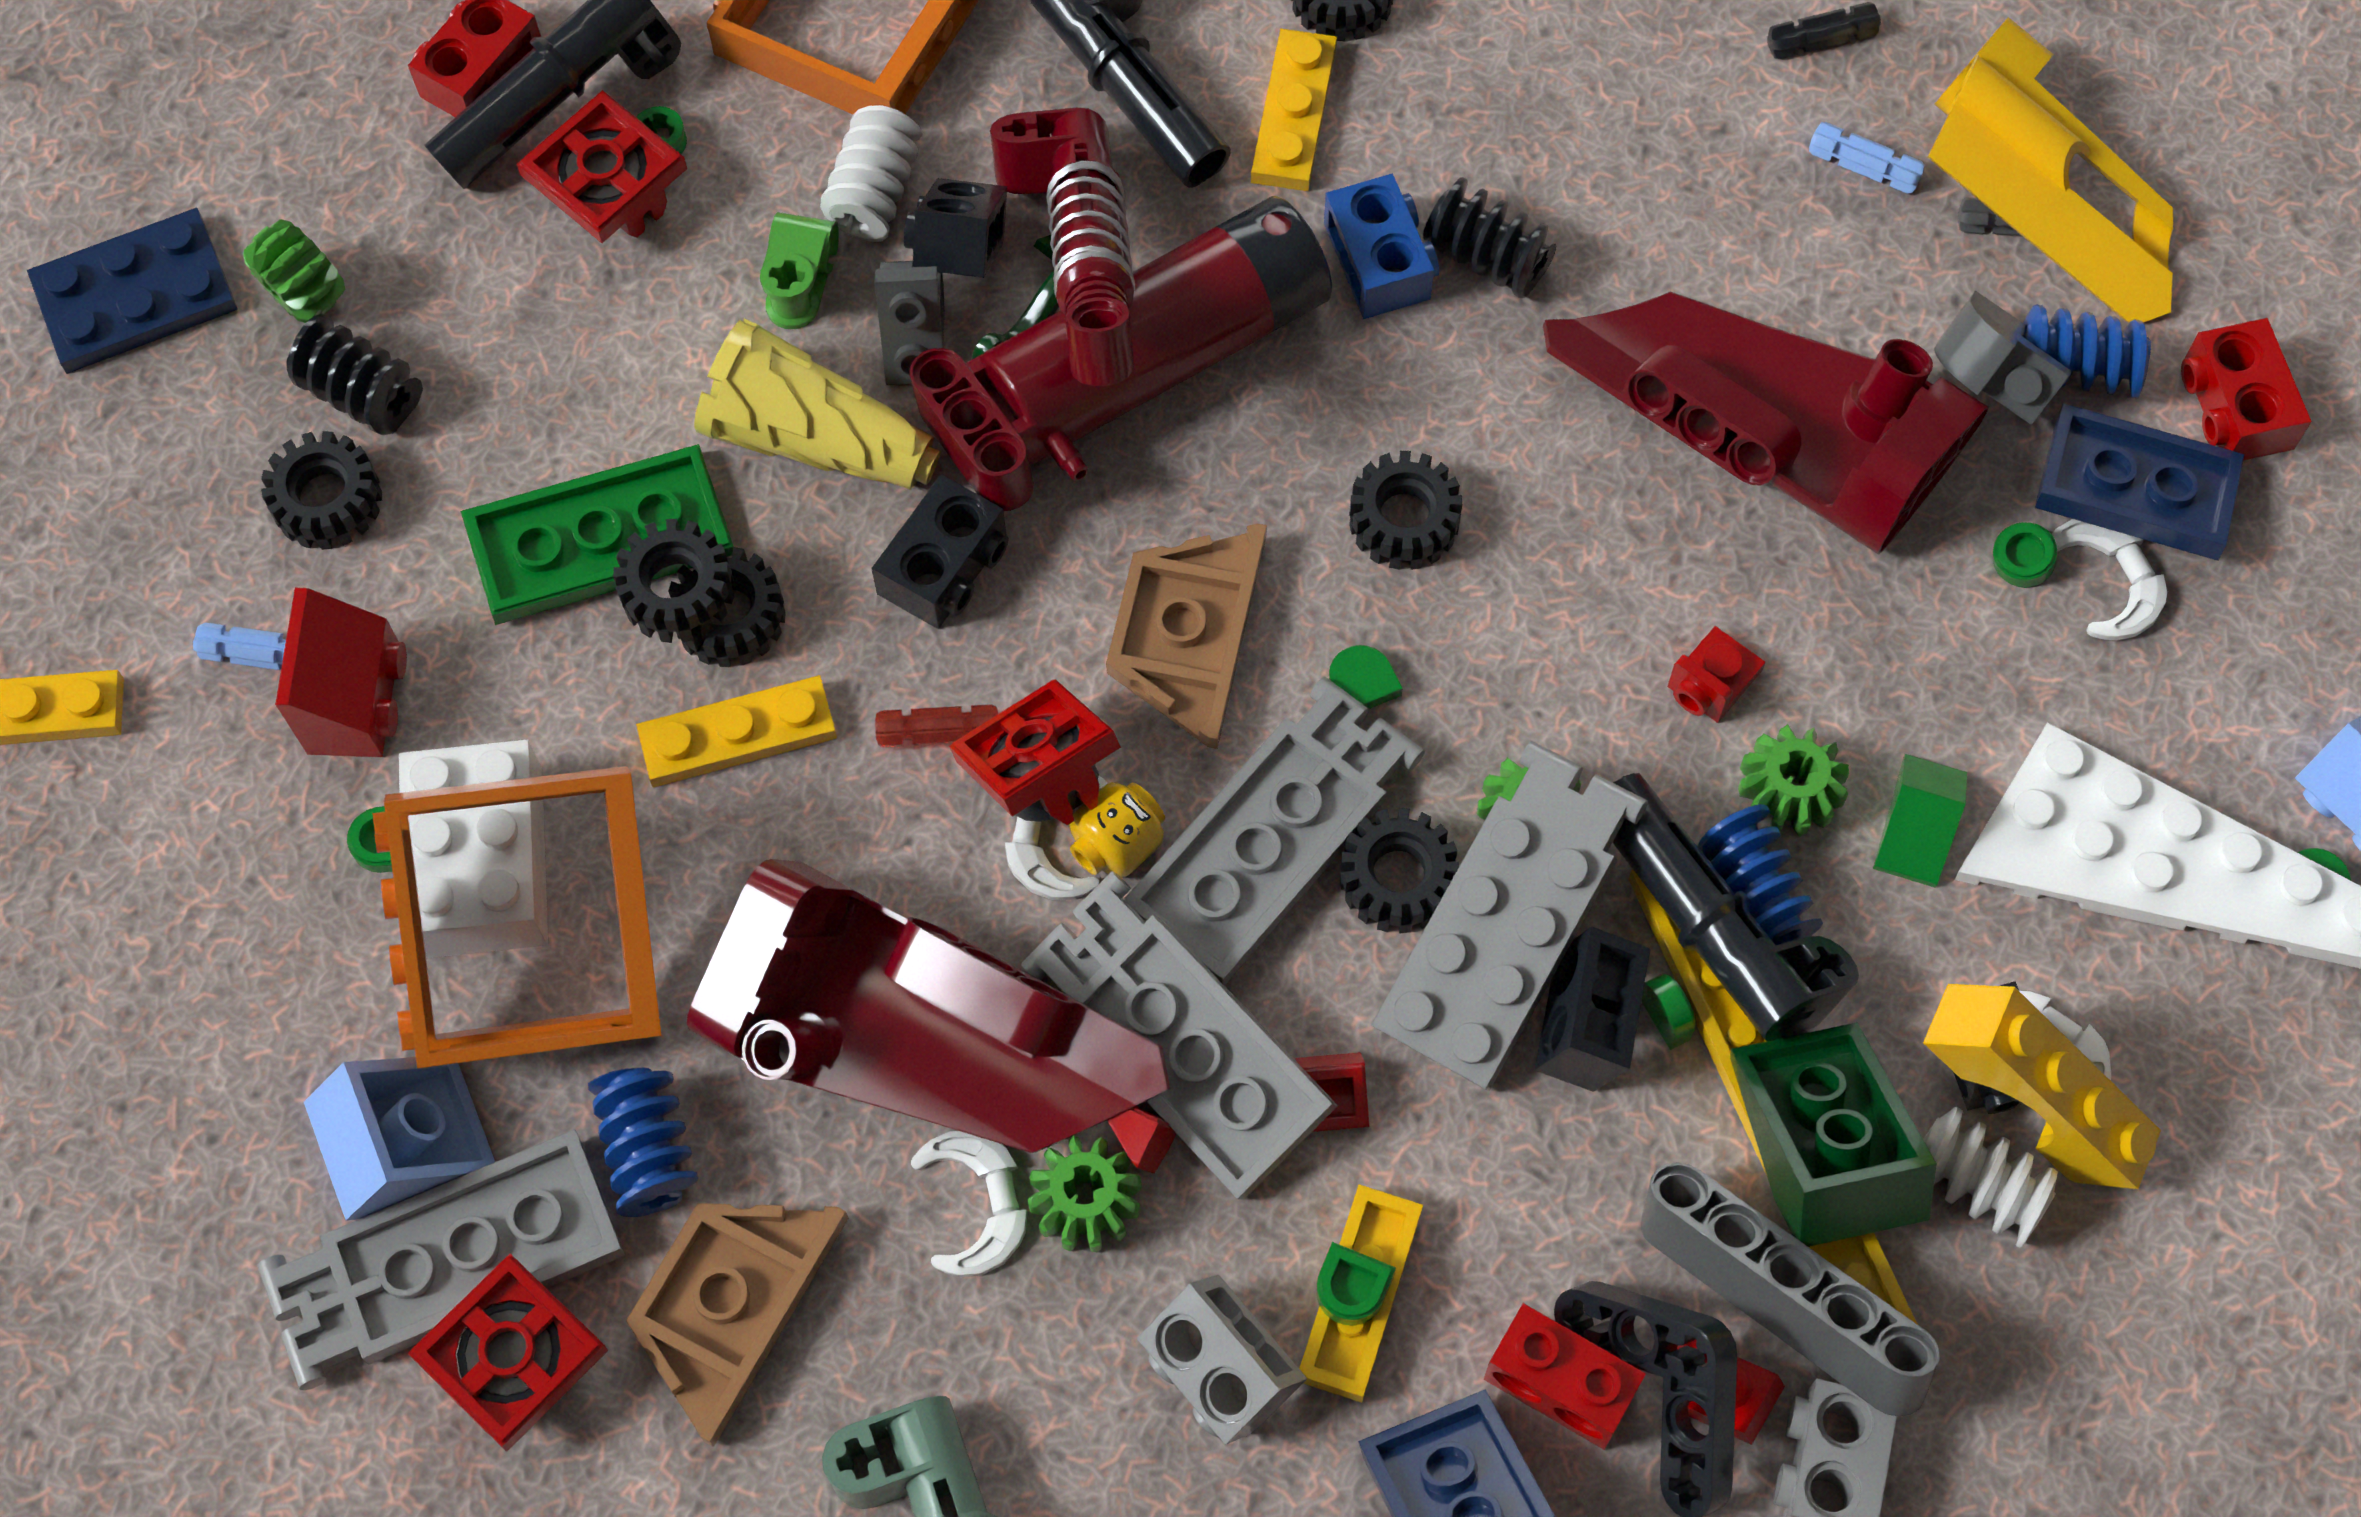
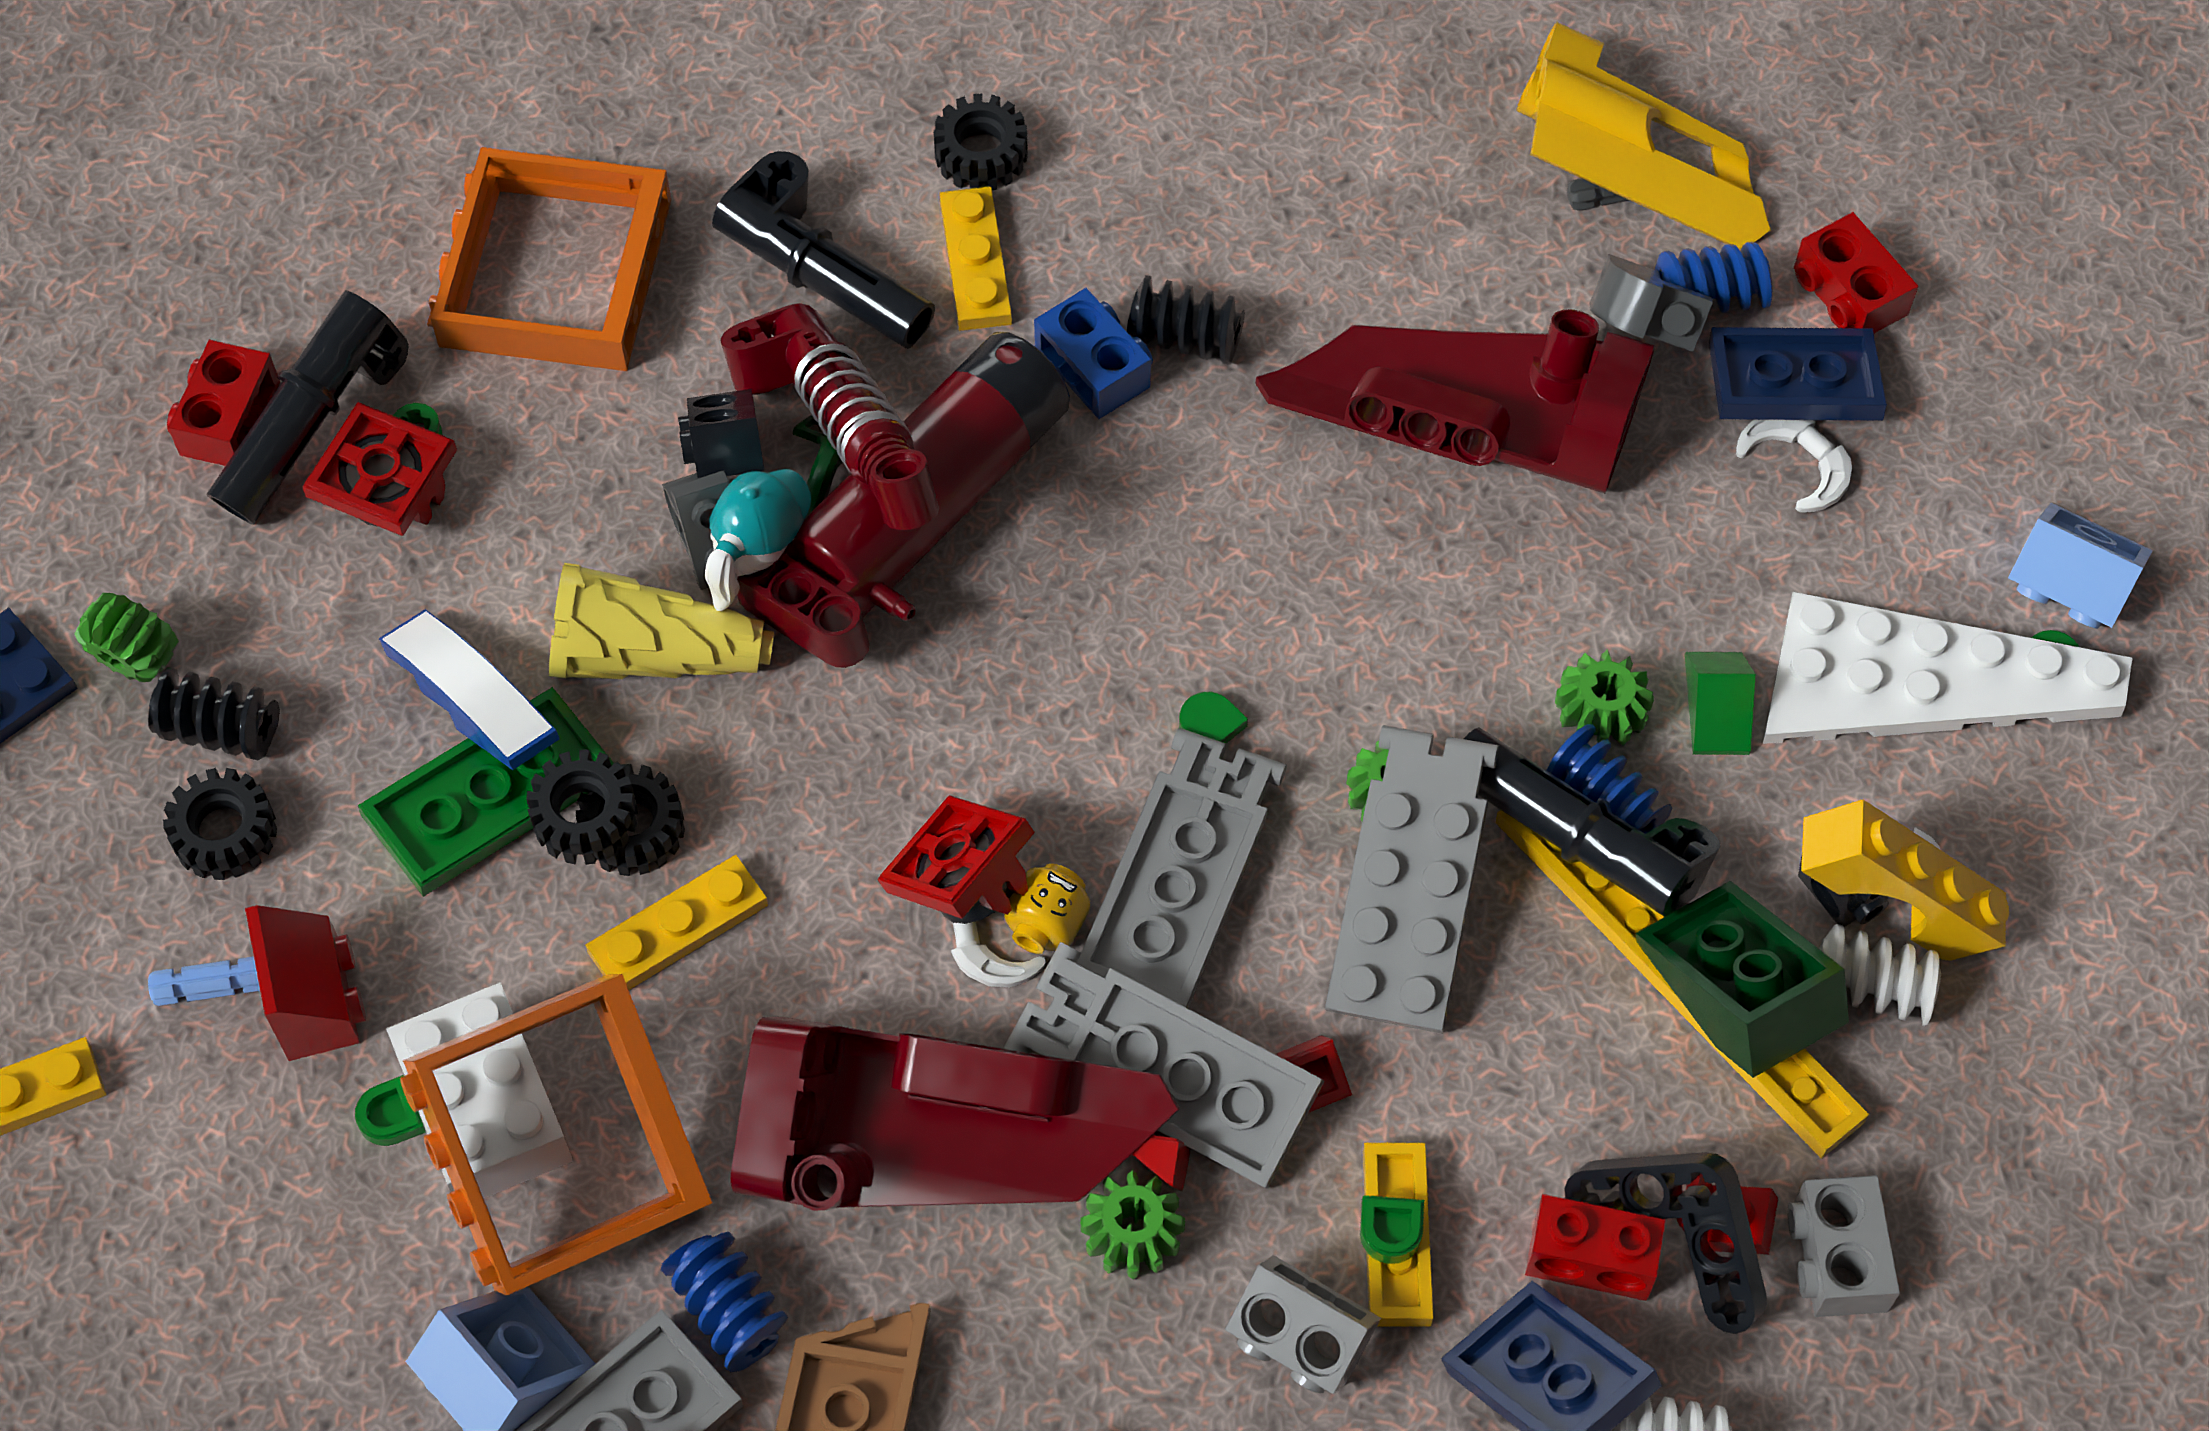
camera: 20 degrees left, 5 degrees down
(610, 423) = (470, 689): none -> white slope
(797, 267) = (586, 510): bright green piece -> none
(871, 172) = (624, 410): white piece -> none
(928, 548) = (795, 718): black brick -> none
(929, 725) = (849, 869): clear red axle -> none
(945, 334) = (753, 527): none -> teal hair
(1007, 1227) = (1040, 1224): white piece -> none
(1186, 627) = (1043, 721): medium nougat wing -> none
(1391, 835) = (1306, 841): black tyre -> none
(1405, 478) = (1199, 541): black tyre -> none
(1593, 1010) = (1510, 937): black brick -> none
(1669, 1009) = (1569, 918): green tile -> none
(1714, 675) = (1505, 632): red bracket -> none
(1790, 1289) = (1755, 1114): dark grey beam -> none
(1823, 30) = (1401, 74): black axle -> none
(1866, 157) = (1476, 170): light blue axle -> none
(2025, 554) = (1724, 460): green tile -> none

